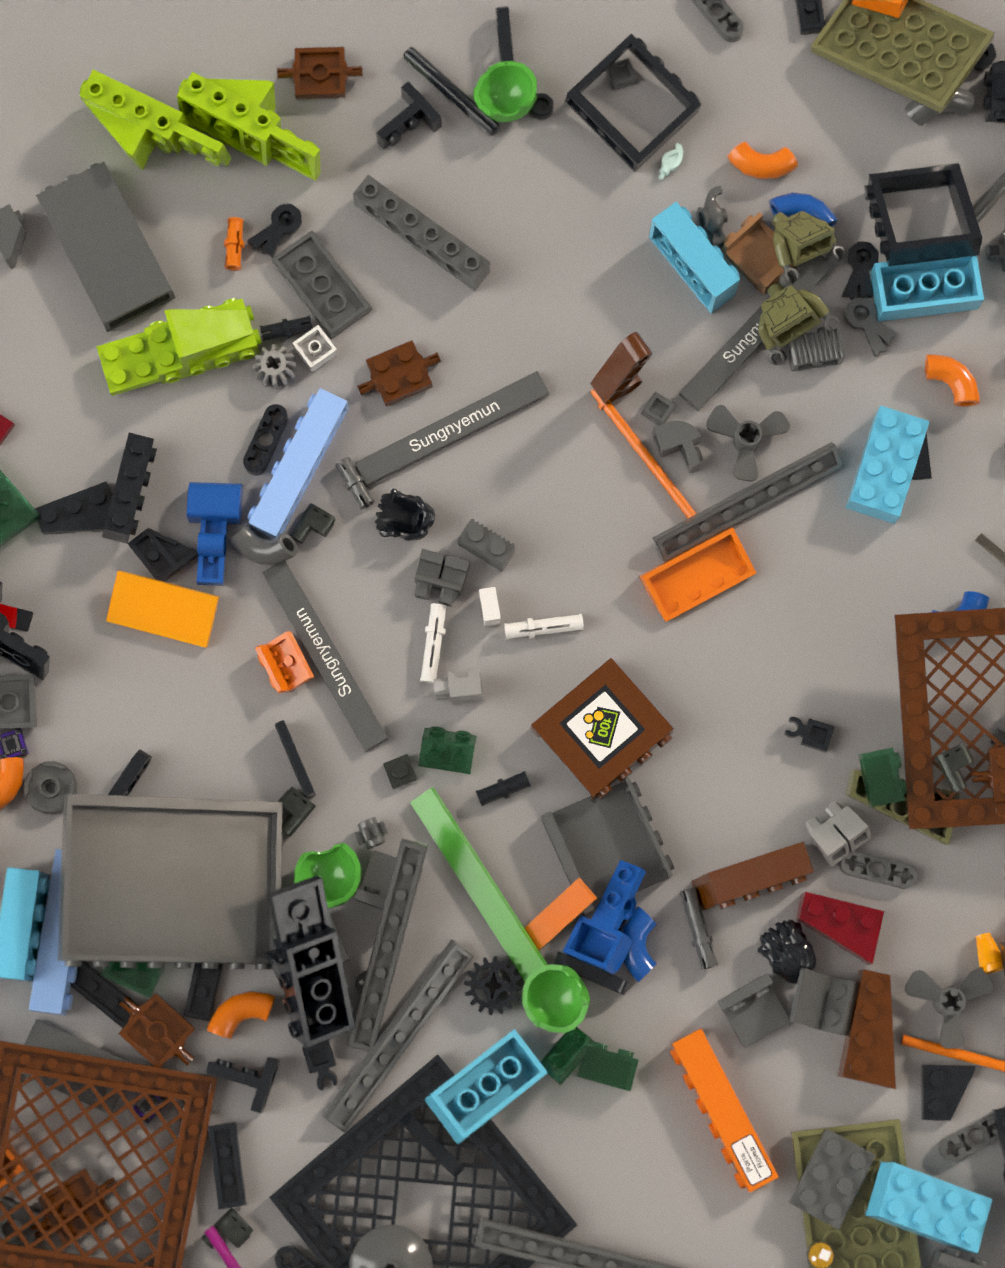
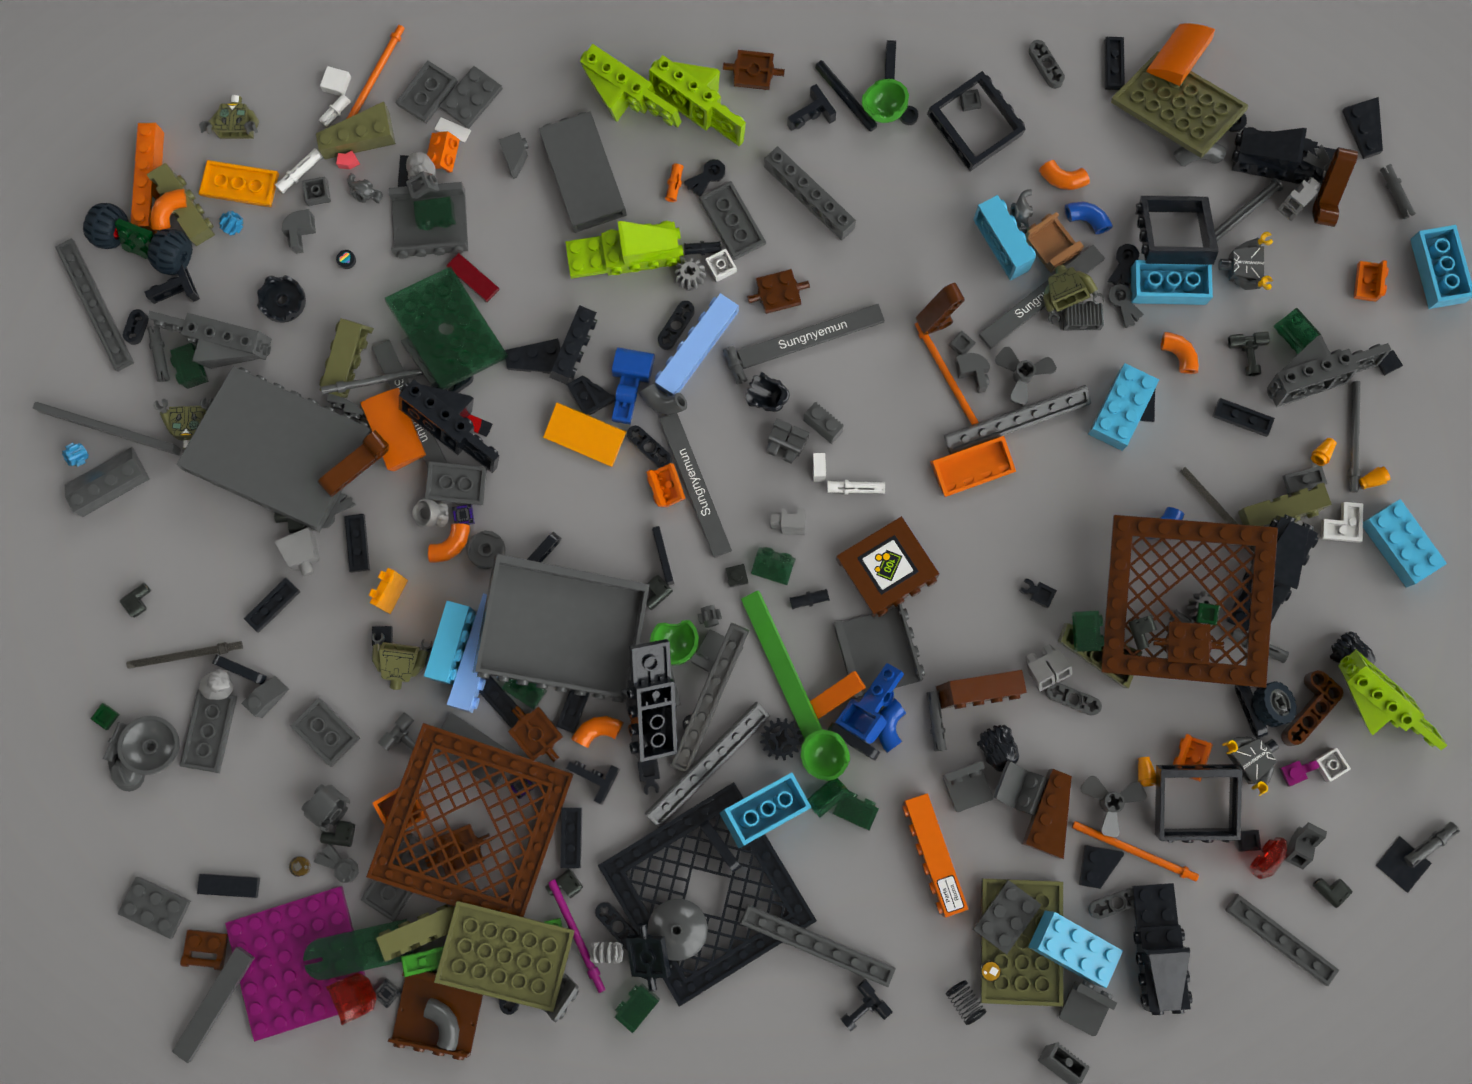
camera: 15 degrees right, 0 degrees up
(242, 596) = (635, 441): none -> black beam
(313, 519) = (701, 386): pearl dark grey piece -> none
(436, 613) = (780, 466): white pin -> none
(671, 161) = (997, 167): light aqua piece -> none
(802, 239) = (1085, 235): olive torso -> none
(843, 923) = (1044, 734): dark red wedge -> none

